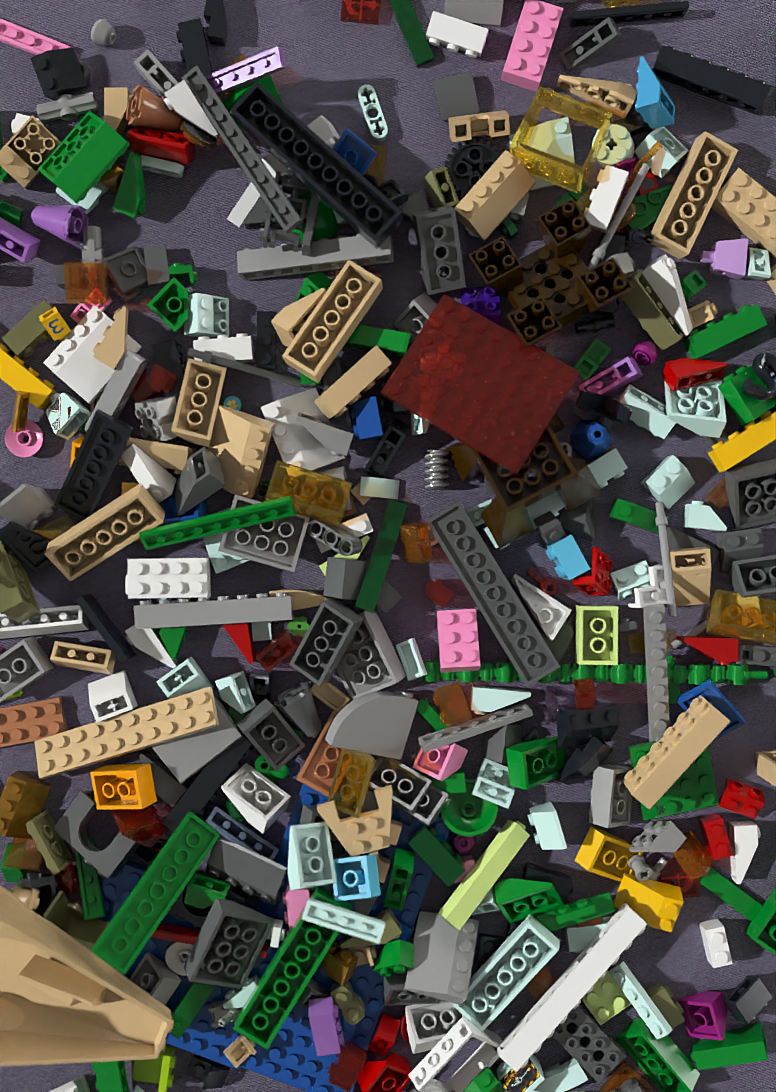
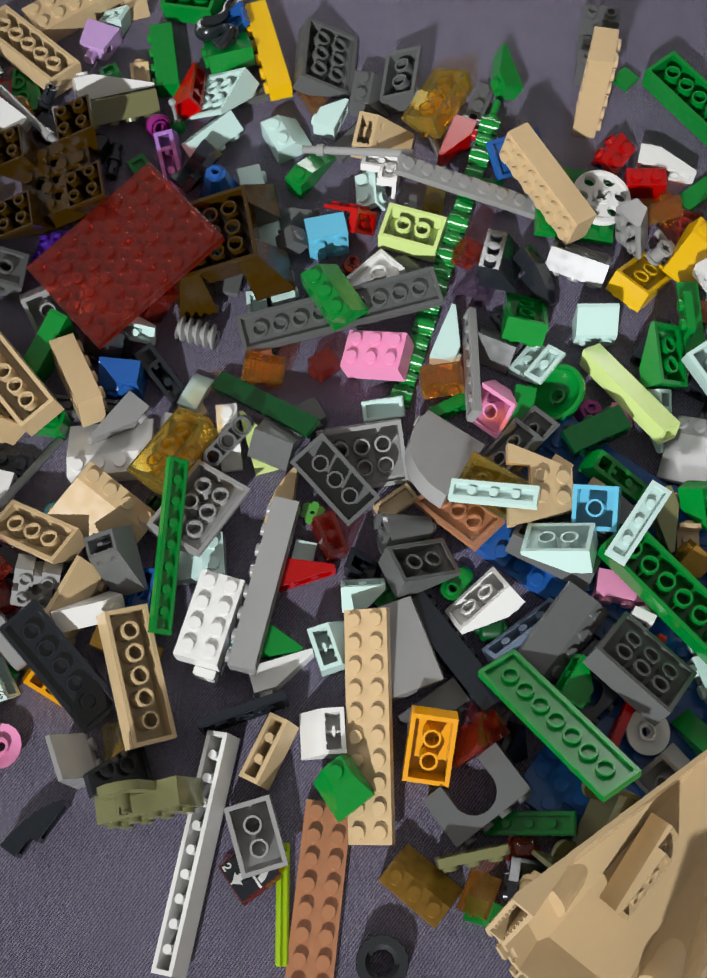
camera: 70 degrees left, 20 degrees down
(70, 727) = (343, 787): none -> green slope
(340, 788) = (494, 493): none -> light aqua plate
(502, 587) = (333, 295): none -> green slope
(657, 369) = (177, 123): none -> hinge
(683, 809) = (601, 190): none -> white wedge

